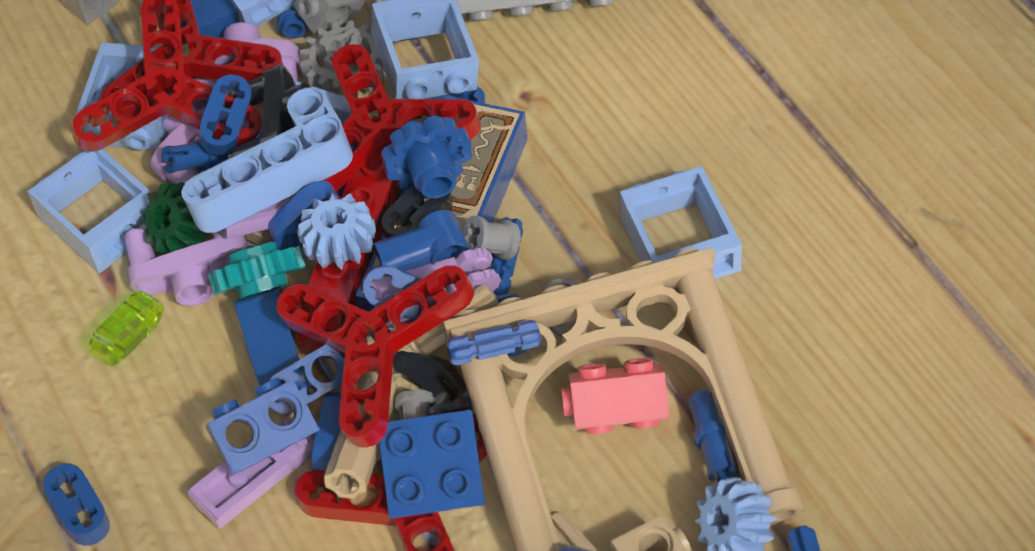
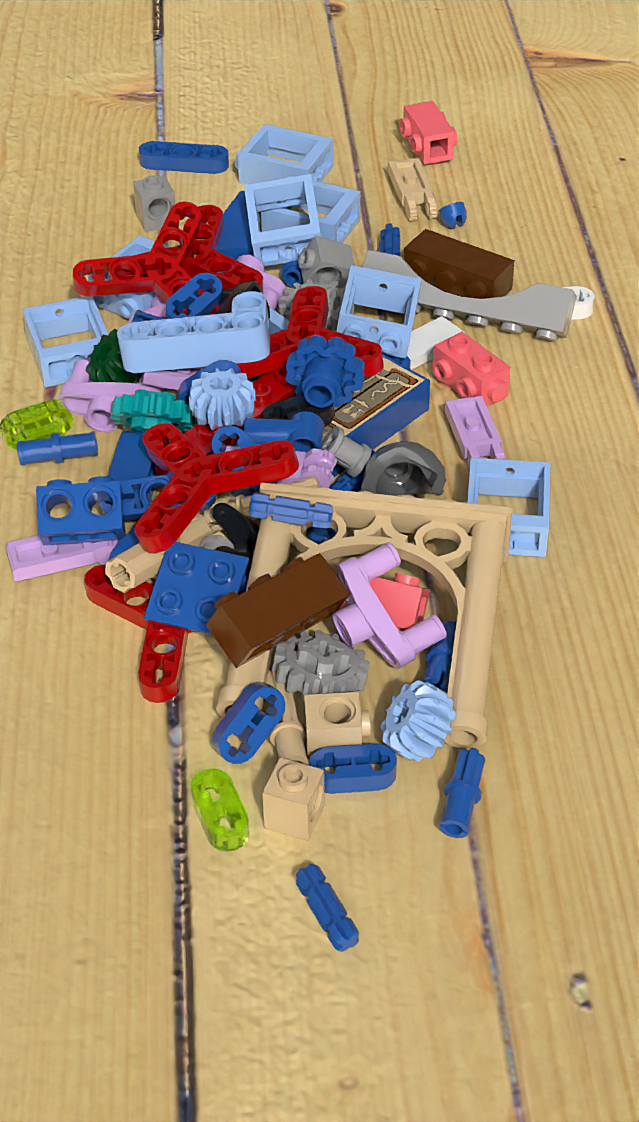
camera: 20 degrees right, 10 degrees down
(167, 348) = (57, 448): none -> blue pin
(493, 47) = (425, 337): none -> white tile
(539, 460) = (276, 608): none -> reddish brown brick
(552, 78) = (470, 369): none -> coral brick
(556, 229) = (404, 469): none -> dark grey piece
(596, 152) = (474, 428): none -> lavender hinge
(601, 497) = (319, 665): none -> light grey gear
(625, 426) = (367, 617): none -> lavender connector

